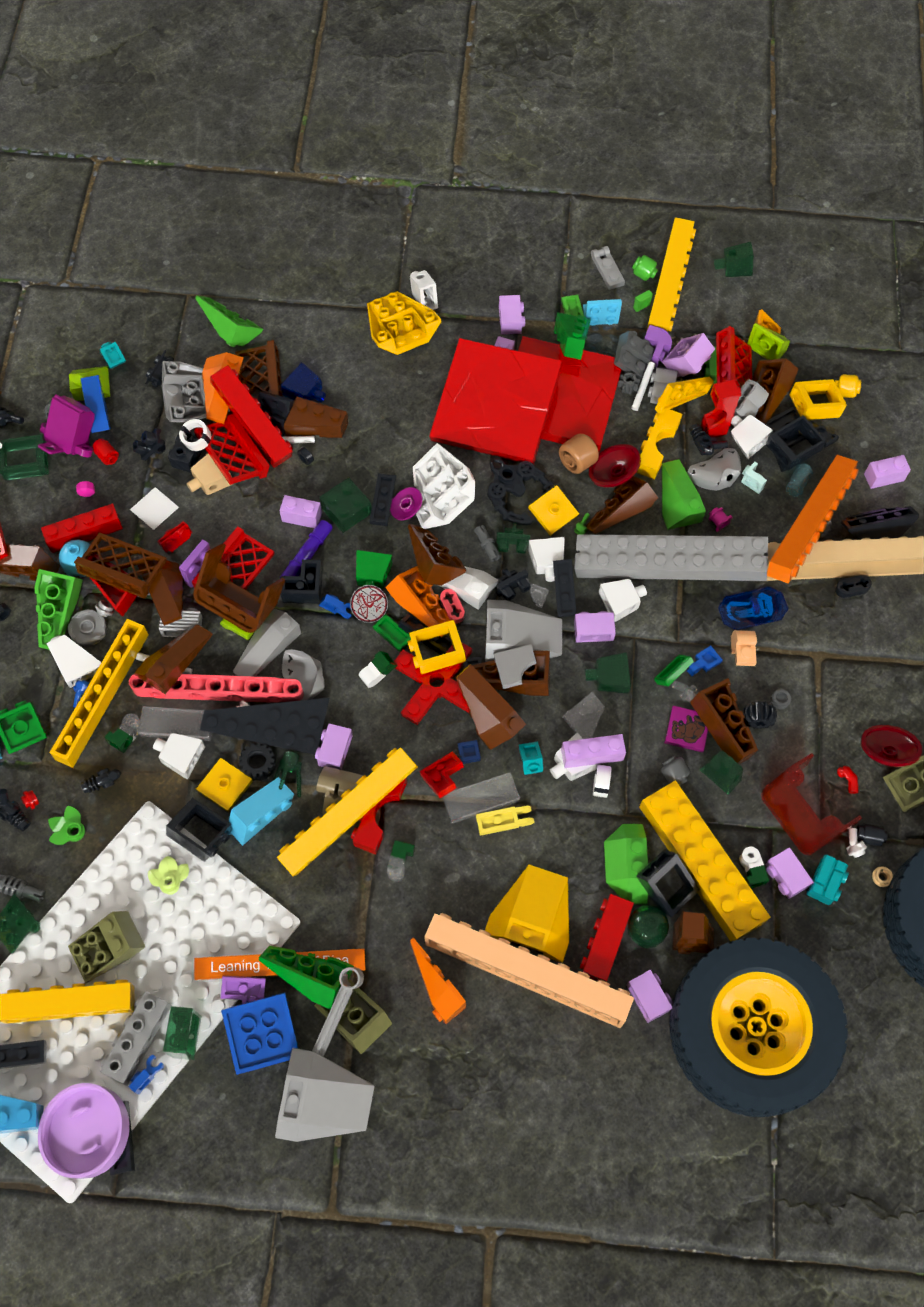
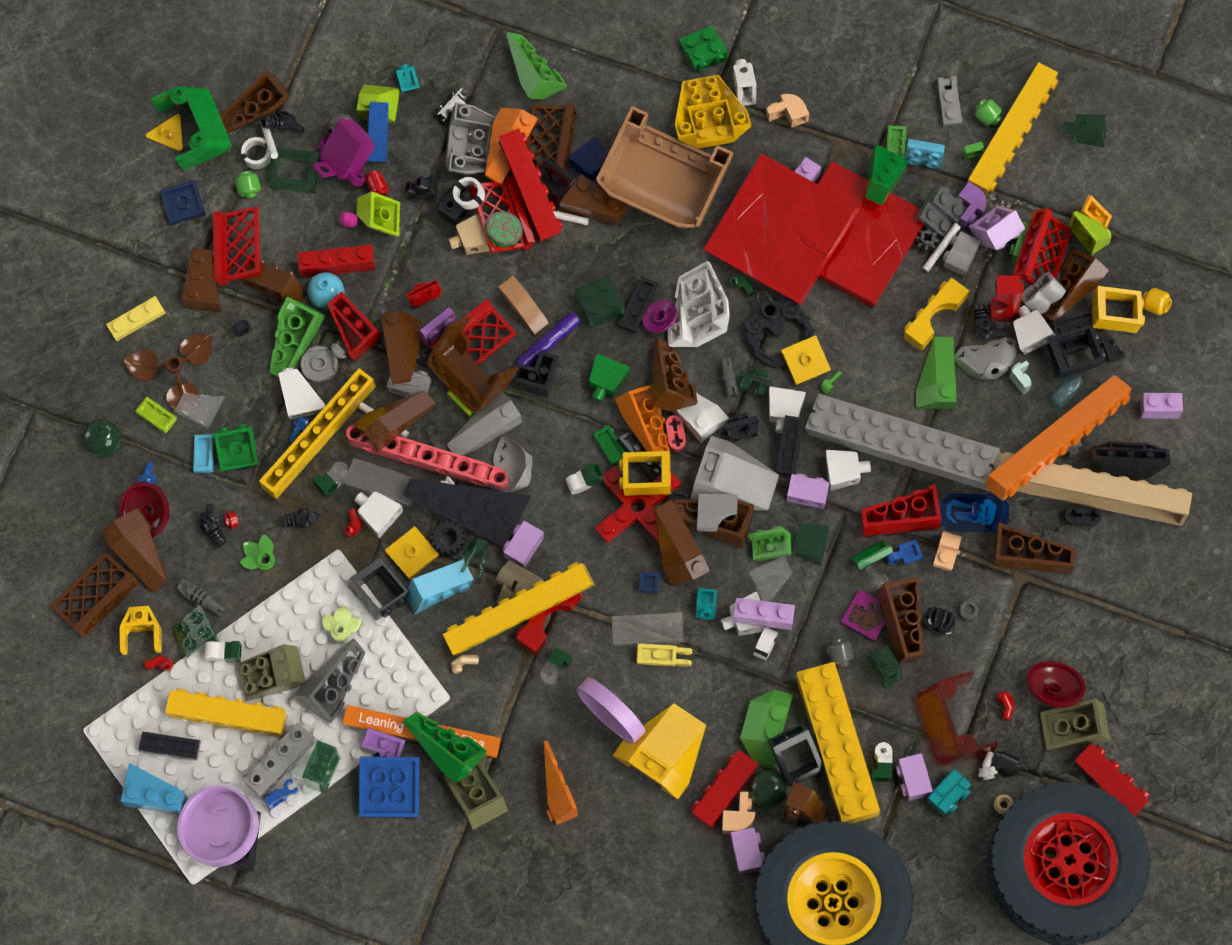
camera: 20 degrees right, 5 degrees up
(50, 937) = (223, 651): none -> leg
(113, 577) = (352, 320): reddish brown fence -> none
(114, 475) = (379, 213): none -> lime slope
(154, 508) = (411, 256): white sticker -> none
(159, 771) = (355, 524): none -> red arm
(170, 943) = (327, 687): none -> dark grey wedge
(237, 460) = (504, 229): none -> green tile
(273, 525) = (523, 305): none -> medium nougat slope
(300, 511) = (553, 298): lavender brick -> none
(305, 456) = (573, 238): black tile -> none
(305, 877) = (461, 661): none -> tan arm
(321, 1099) = (428, 857): light grey wedge -> none
(335, 606) = (559, 402): blue plate -> none
(337, 1009) = (450, 798): light grey piece -> none
(368, 603) = (594, 410): tile -> none
(372, 378) = (662, 173): none -> medium nougat slope
(378, 273) = (704, 48): none -> green plate
(438, 774) = (613, 595): red plate -> none
(470, 301) = (792, 107): none -> light nougat brick
(471, 888) = (610, 710): none -> lavender piece
(473, 458) = (742, 283): none -> dark green arm
(510, 314) = (828, 131): lavender brick -> none
(529, 970) = (642, 797): light nougat brick -> none
(538, 594) = (764, 443): clear tile -> none
(575, 683) = (770, 543): none -> bright green bracket
(578, 453) = (849, 306): medium nougat head -> none
(615, 466) = (881, 329): dark red dish -> none
(628, 501) = (884, 370): reddish brown wedge -> none
(633, 965) = (740, 819): none -> light nougat brick
(682, 392) = (974, 268): yellow wing -> none
(692, 624) = (903, 514): none -> red wedge
(719, 518) = (971, 411): dark pink brick -> none
(822, 629) = (1031, 552): none -> reddish brown wedge

